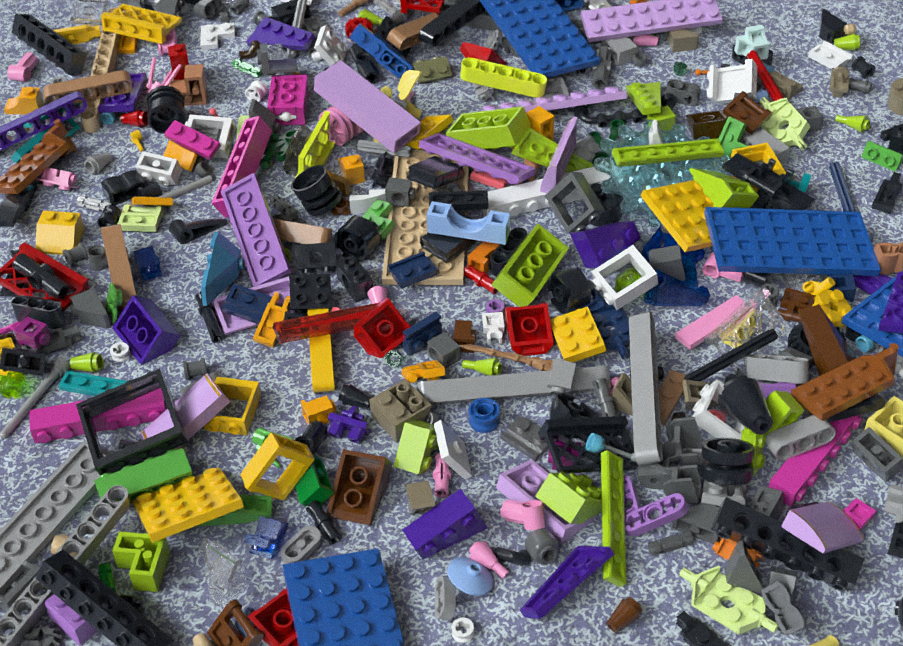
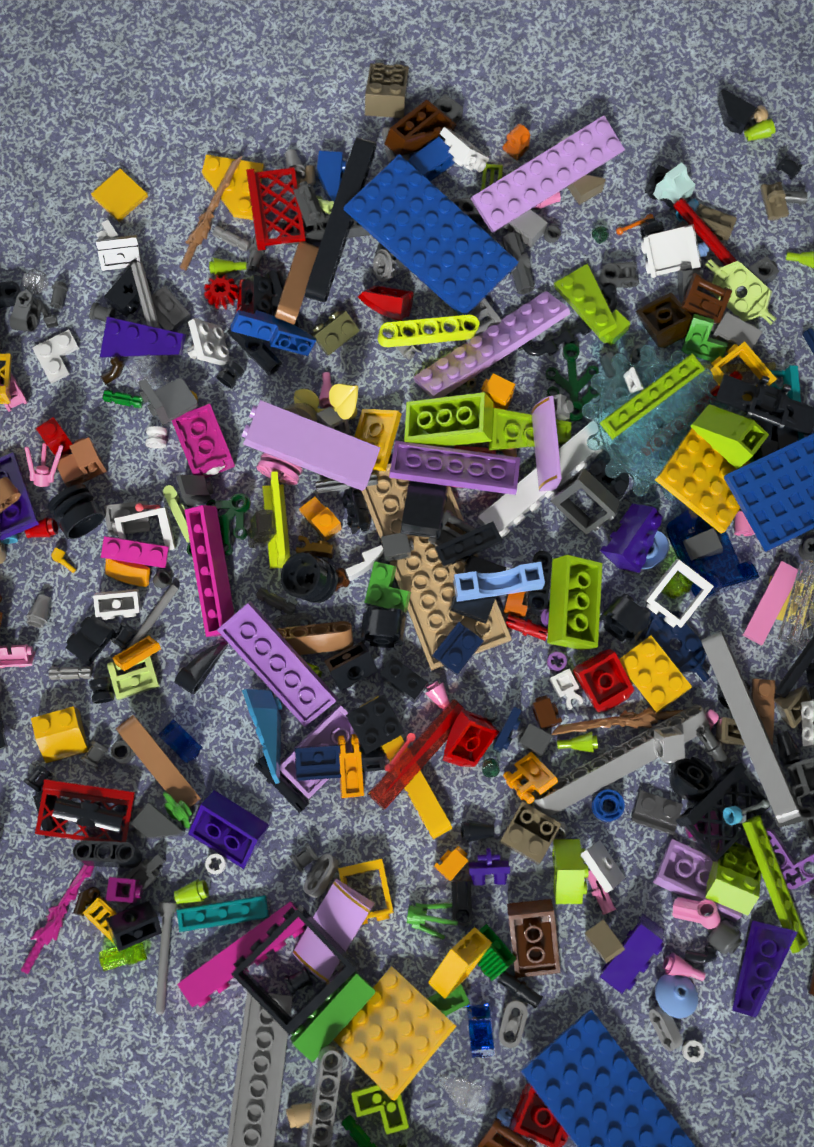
camera: 25 degrees left, 30 degrees up
(830, 55) = (749, 158): white plate -> none

